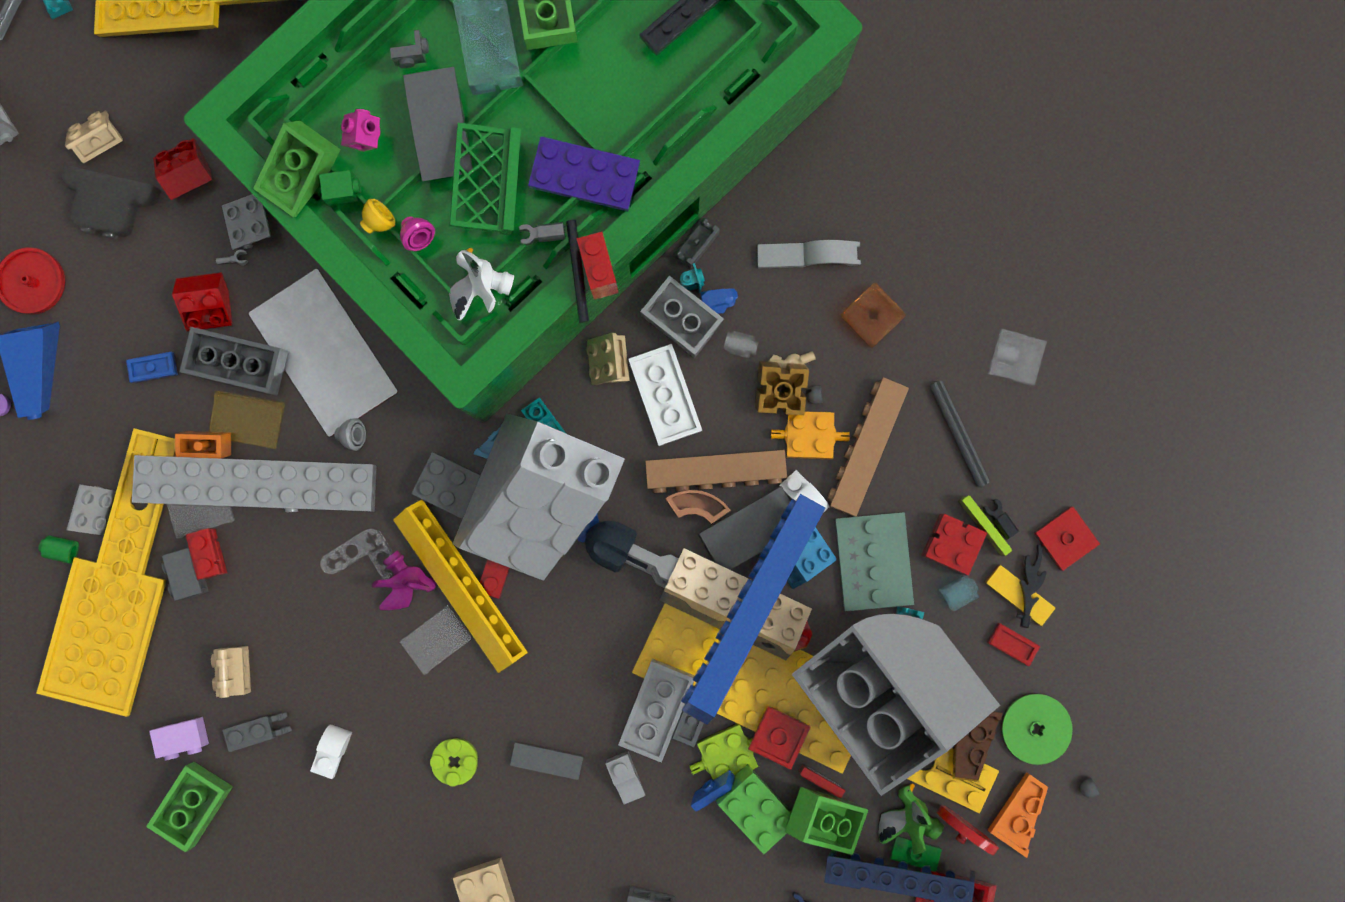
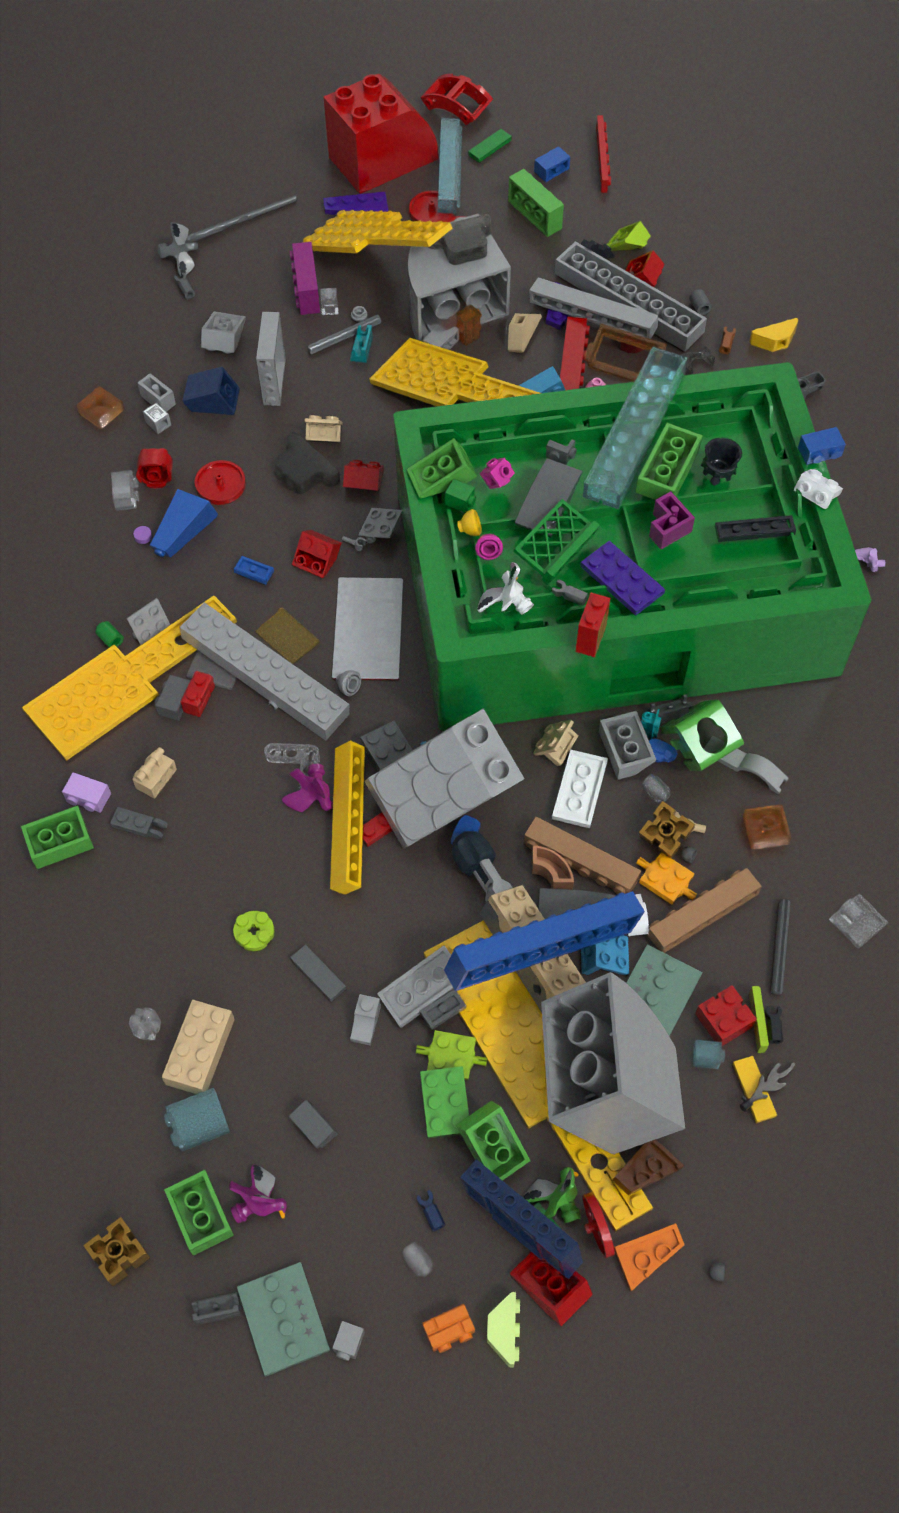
camera: 35 degrees right, 25 degrees down
(203, 444) = (251, 626): orange brick -> none
(225, 348) = (308, 594): dark grey brick -> none
(330, 751) = (178, 864): white brick -> none
(436, 640) = (303, 845): clear piece -> none
(577, 272) = (569, 640): black bar -> none
(596, 64) = (672, 521): none -> magenta brick
(712, 790) = (421, 1065): blue plate -> none
(735, 264) = (689, 738): none -> bright green piece
(779, 737) = (499, 1062): red plate -> none
(821, 781) = (502, 1102): red tile -> none
(1013, 644) = (726, 1122): red tile -> none
(1018, 728) = (692, 1209): bright green piece -> none
(1067, 538) = (818, 1072): red plate -> none

